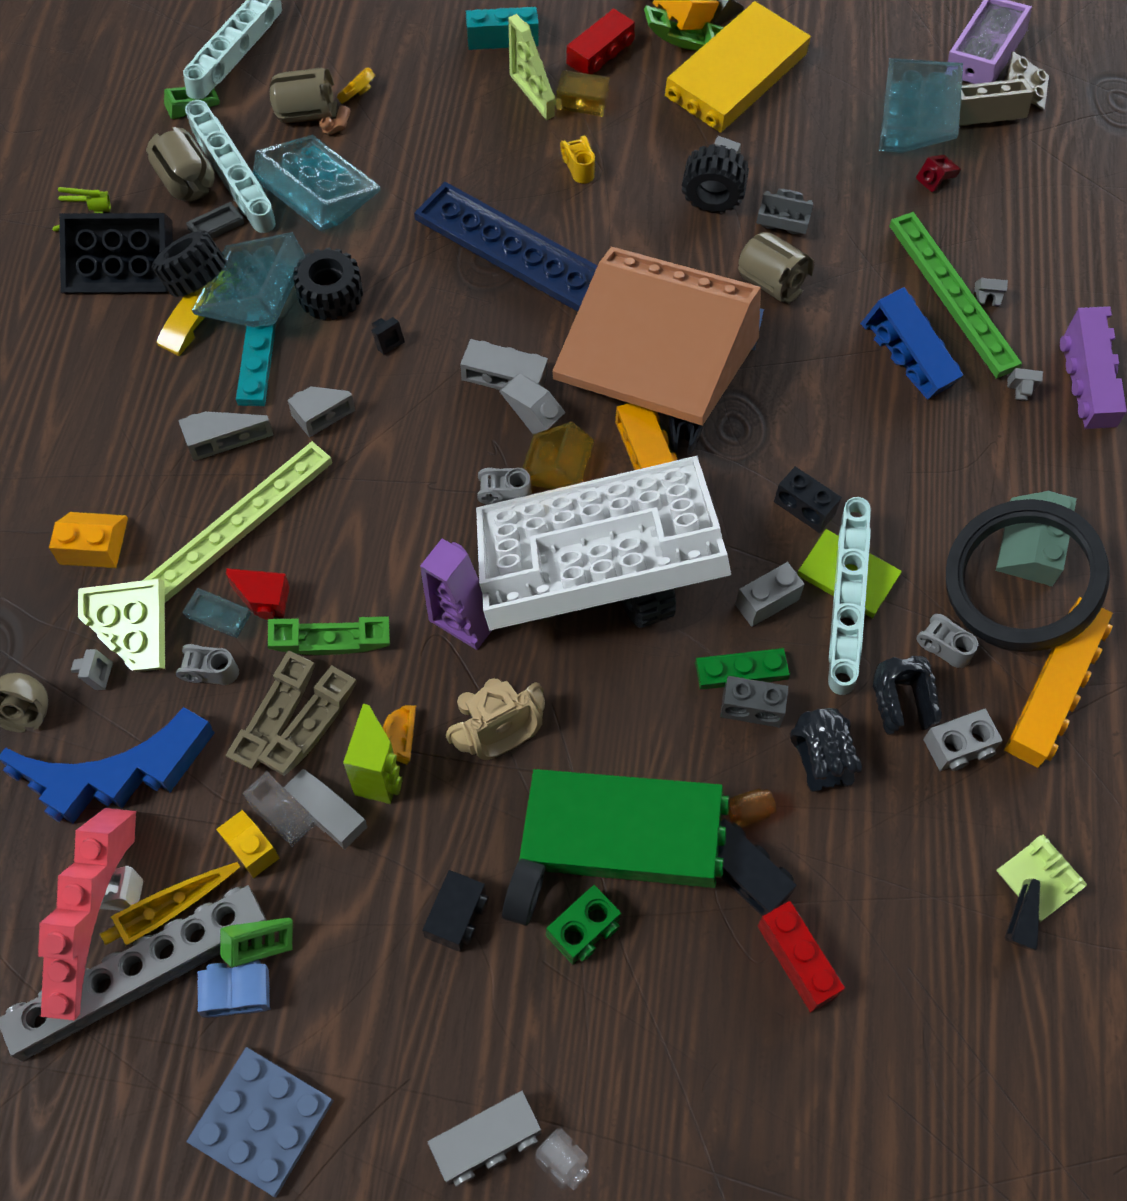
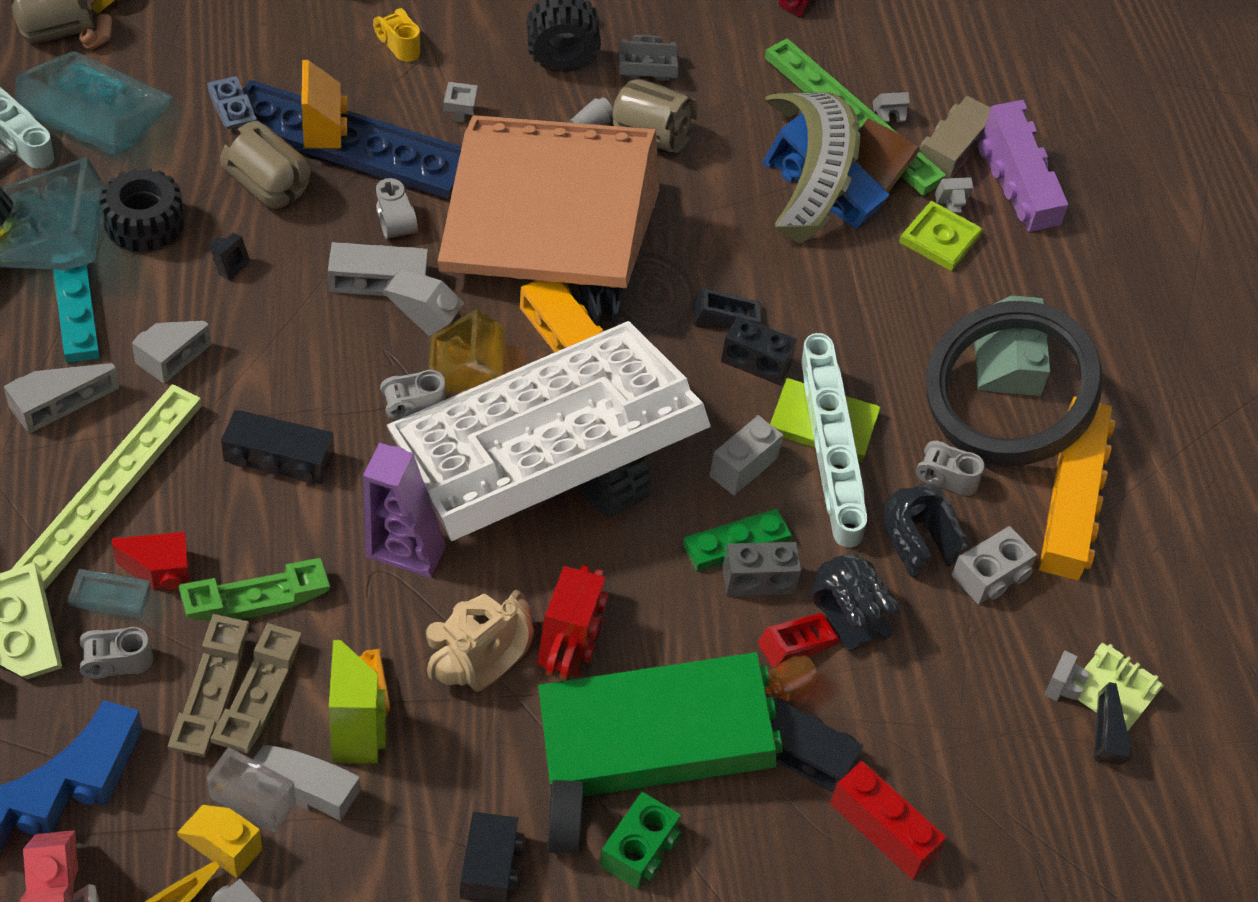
camera: 20 degrees left, 10 degrees down
(381, 511) = (277, 446): none -> black brick
(422, 200) = (231, 102): none -> sand blue slope
(436, 261) = (266, 165): none -> dark tan cylinder
(491, 217) = (322, 108): none -> light orange slope
(532, 317) = (394, 209): none -> light grey piece
(576, 719) = (572, 622): none -> red brick
(613, 226) = (460, 100): none -> light grey tile
(722, 258) = (596, 113): none -> light grey cone
(751, 775) = (778, 648): none -> red slope
(780, 462) = (715, 309): none -> black slope
(918, 327) = (830, 152): none -> windscreen
(966, 335) = (884, 153): none -> reddish brown slope
(994, 860) = (1063, 677): none -> light grey tile
(1002, 419) = (941, 235): none -> lime tile
(1041, 328) = (956, 136): none -> dark tan brick

